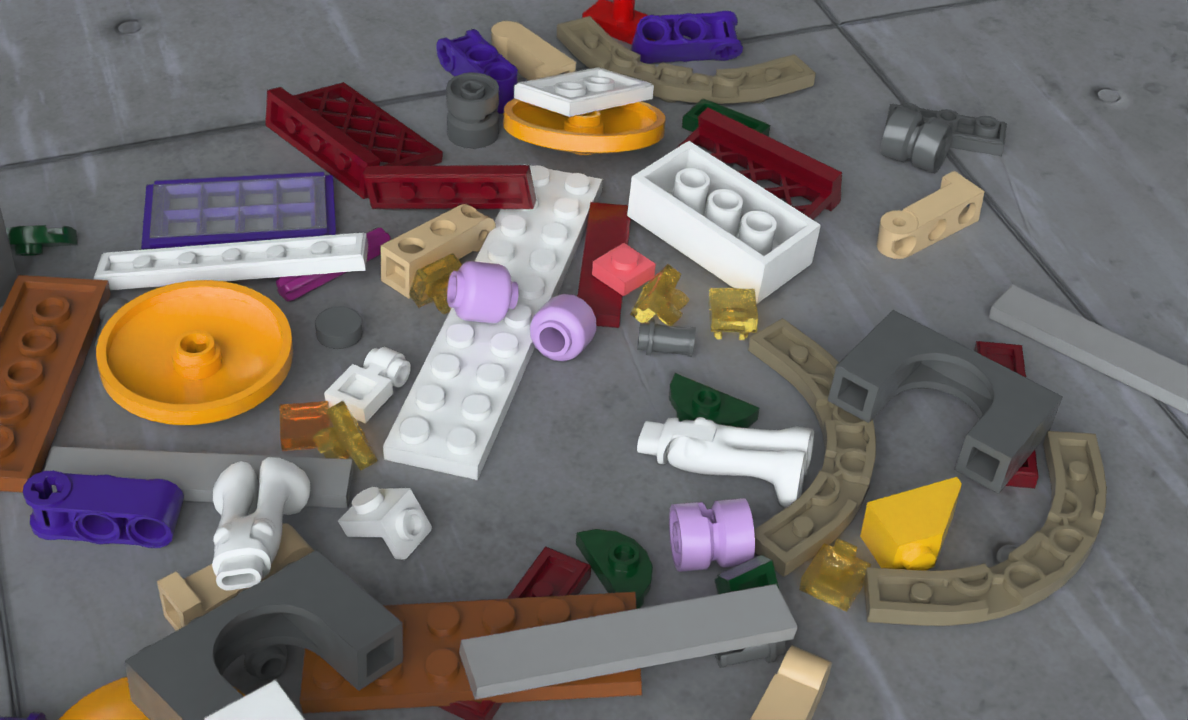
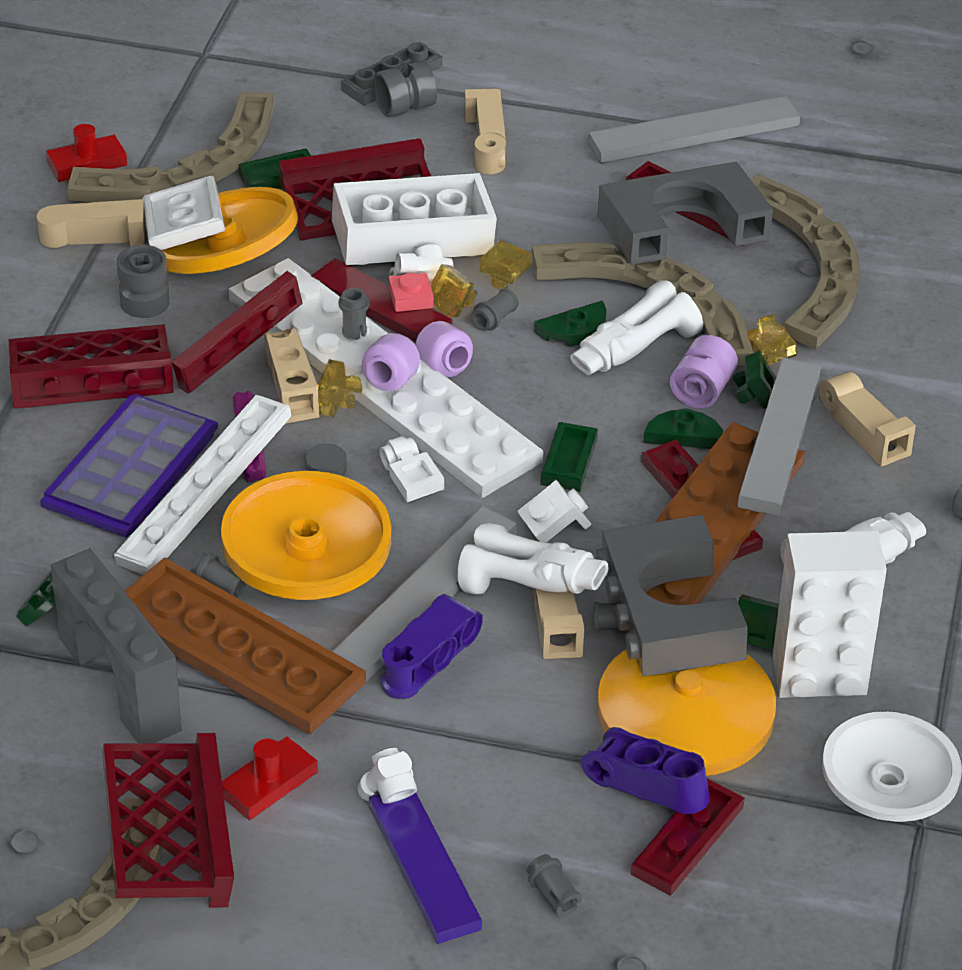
camera: 55 degrees left, 0 degrees up
(301, 422) = (420, 519): clear orange tile -> none
(344, 438) = (462, 497): clear yellow tile -> none
(476, 55) = (75, 255): dark purple piece -> none
(495, 494) = (569, 456): none -> dark green tile
(529, 232) = (353, 307): none -> dark grey pin
(683, 258) = (423, 260): none -> white plate
(708, 34) = (161, 132): dark purple piece -> none
(910, 525) = (768, 288): yellow slope -> none

